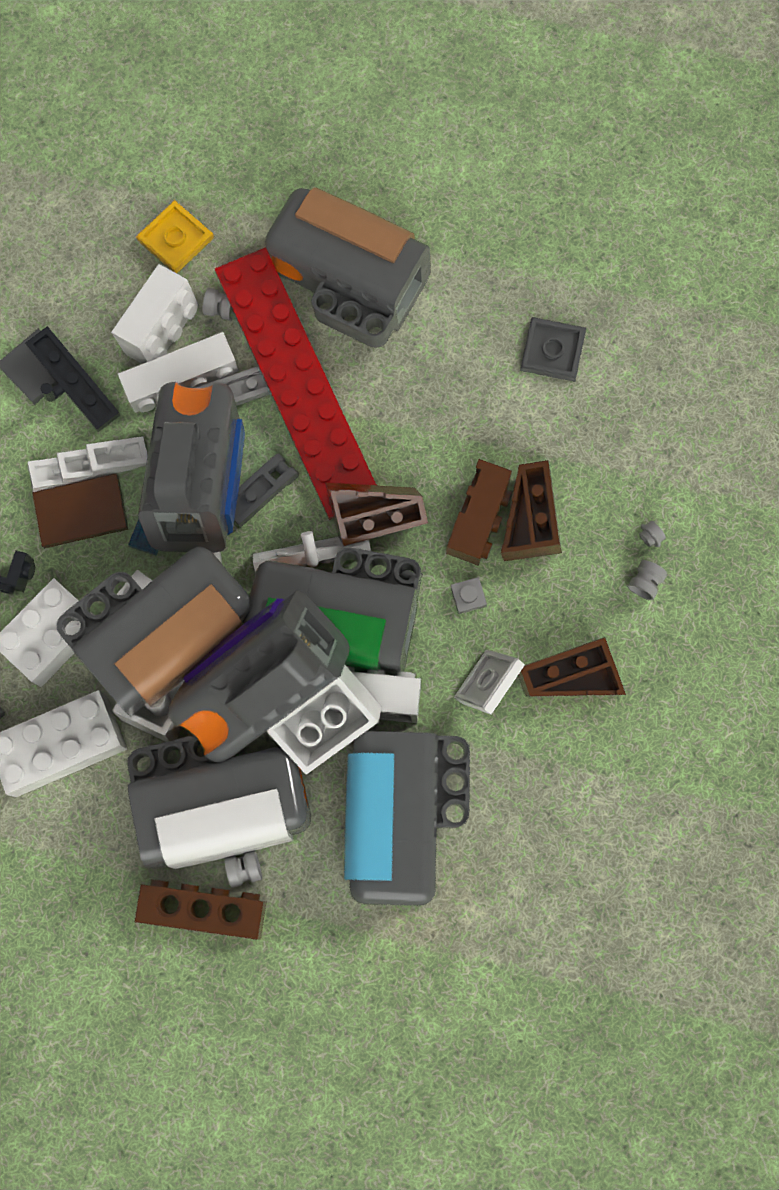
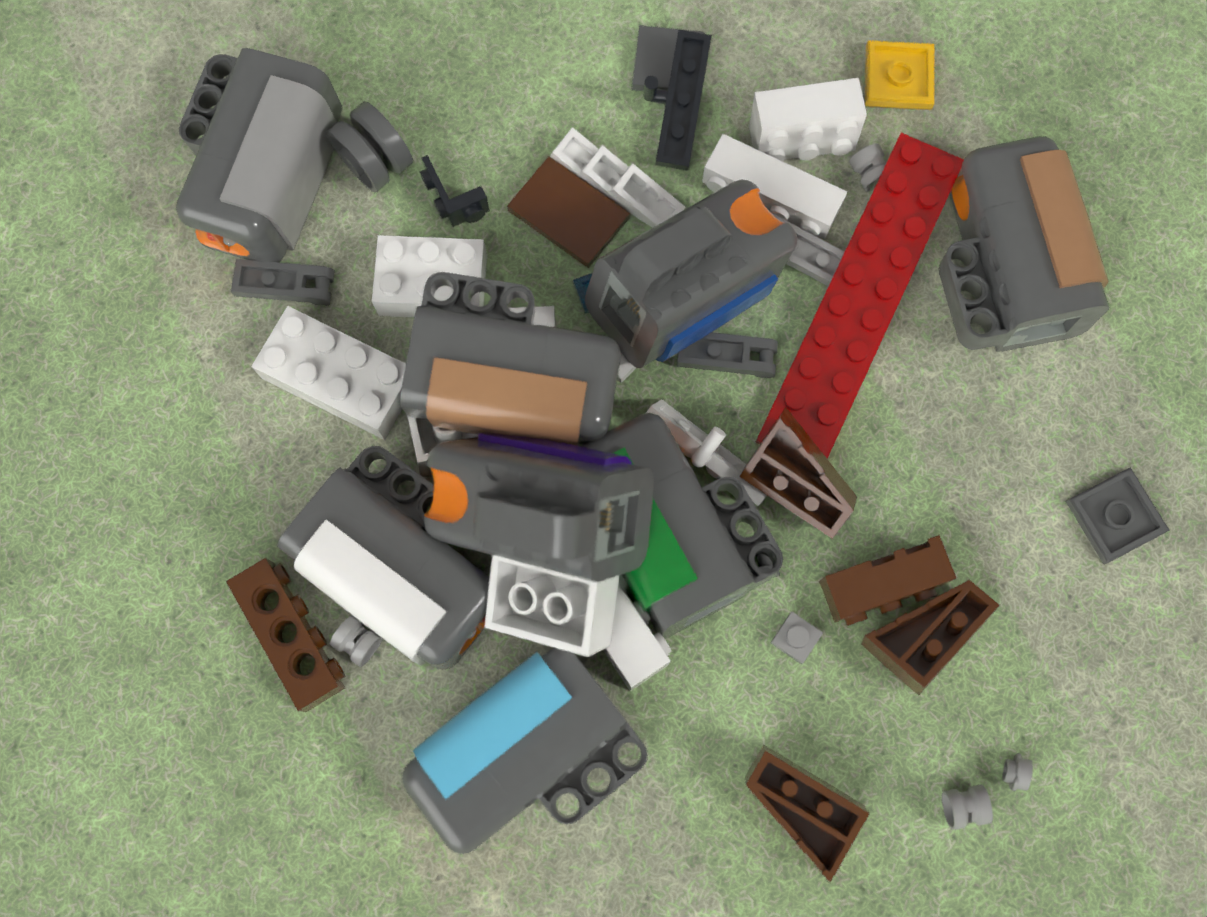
camera: 45 degrees right, 0 degrees up
(489, 681) = (727, 730): white tile -> none

